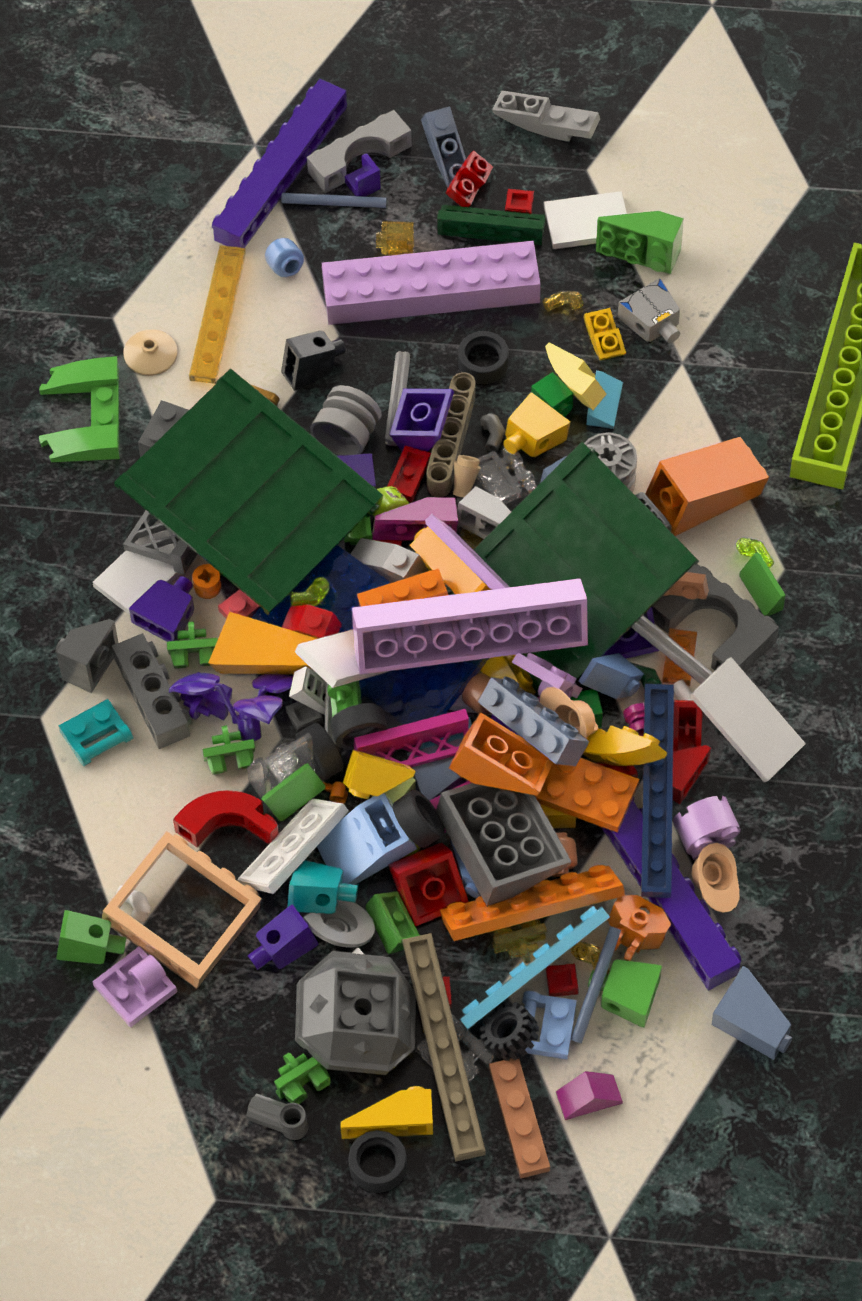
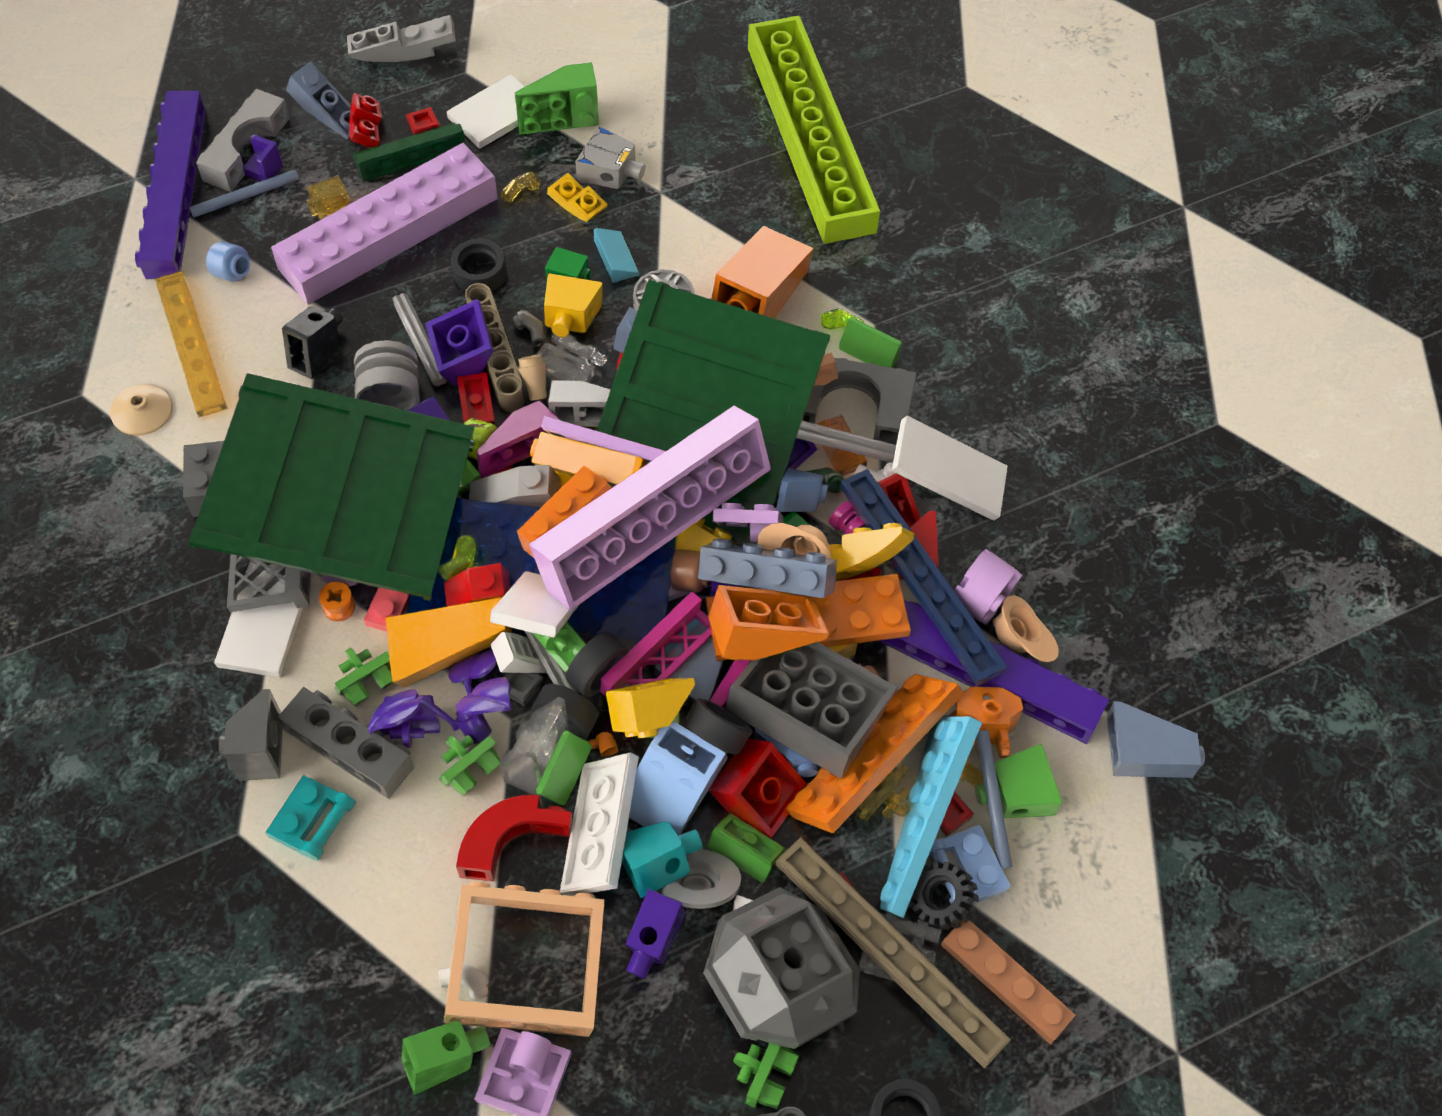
camera: 35 degrees left, 0 degrees up
(102, 438) = (138, 512): bright green wedge -> none
(164, 608) = (309, 651): dark purple torso -> none
(400, 1114) = (898, 1047): yellow slope -> none
(576, 376) = (581, 239): light yellow slope -> none
(588, 1094) = (1056, 917): magenta slope -> none

